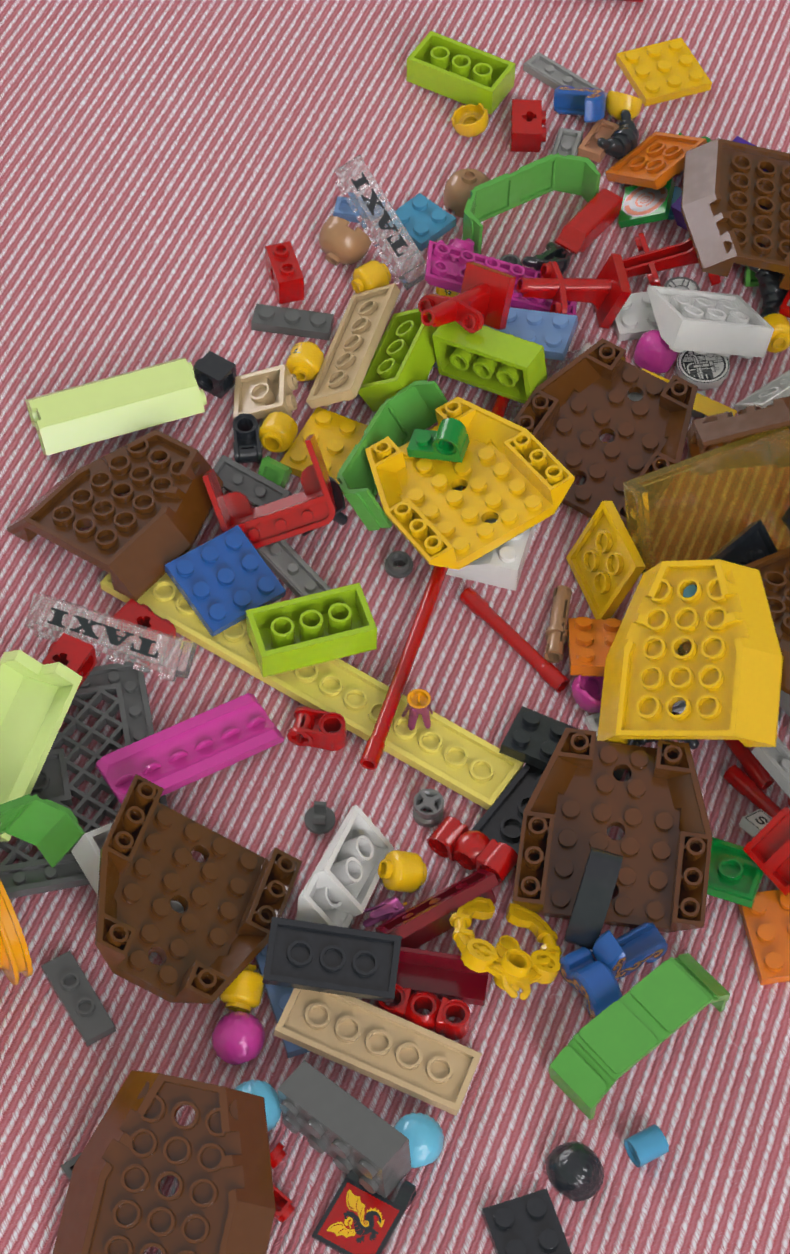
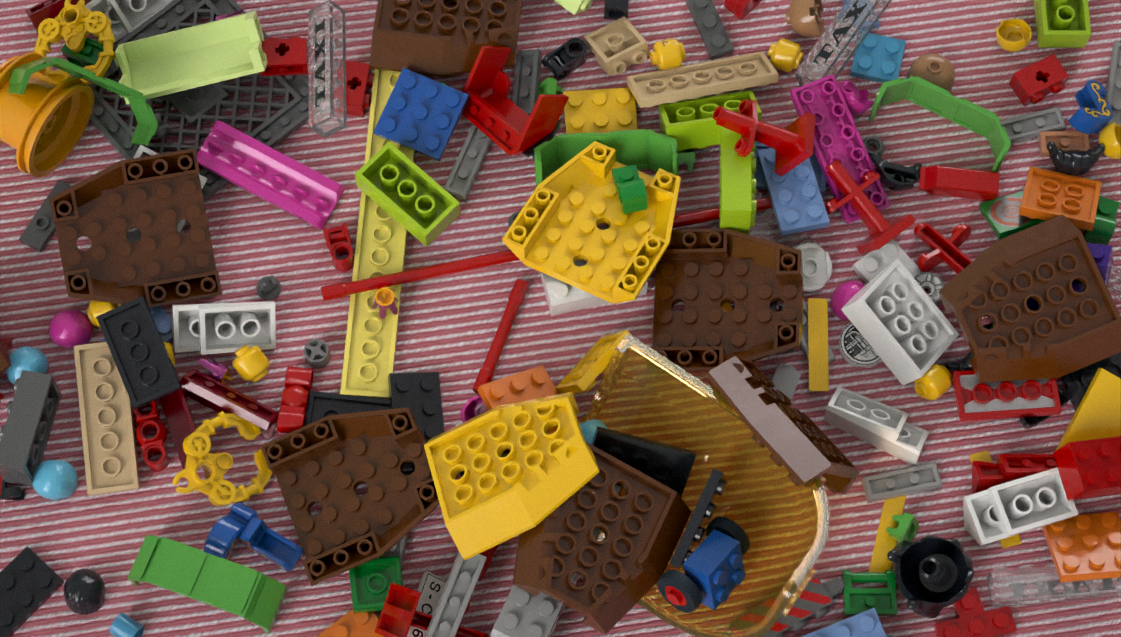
camera: 60 degrees right, 15 degrees up
(278, 432) = (587, 74): yellow head -> none
(557, 631) = (530, 360): medium nougat pin -> none
(593, 897) = (290, 497): black beam -> none

